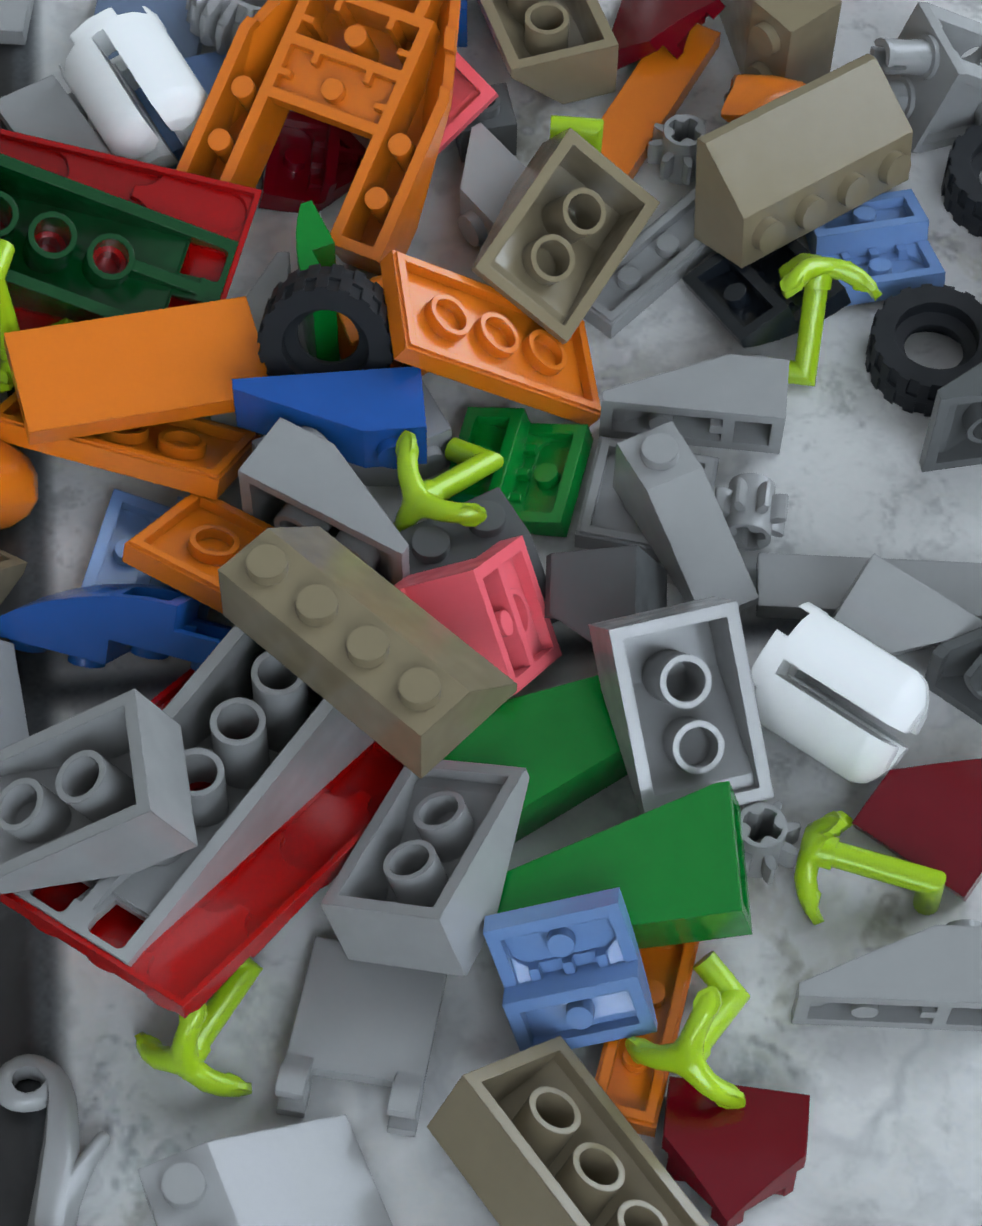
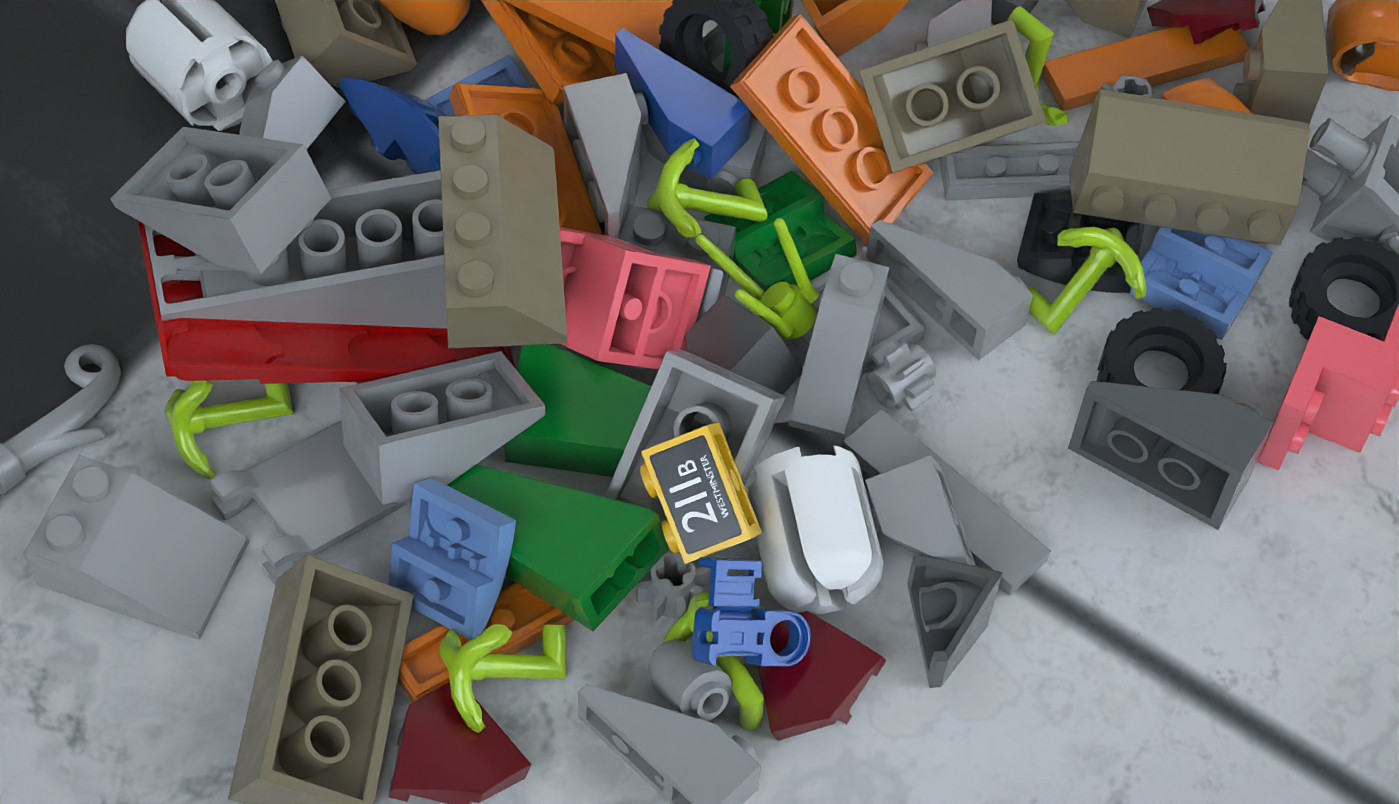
camera: 40 degrees right, 0 degrees up
(601, 523) = (782, 305): none -> lime plant
(744, 733) = (699, 493): none -> brick
(864, 908) = (686, 684): none -> light grey brick
(888, 817) = (737, 625): none -> piece

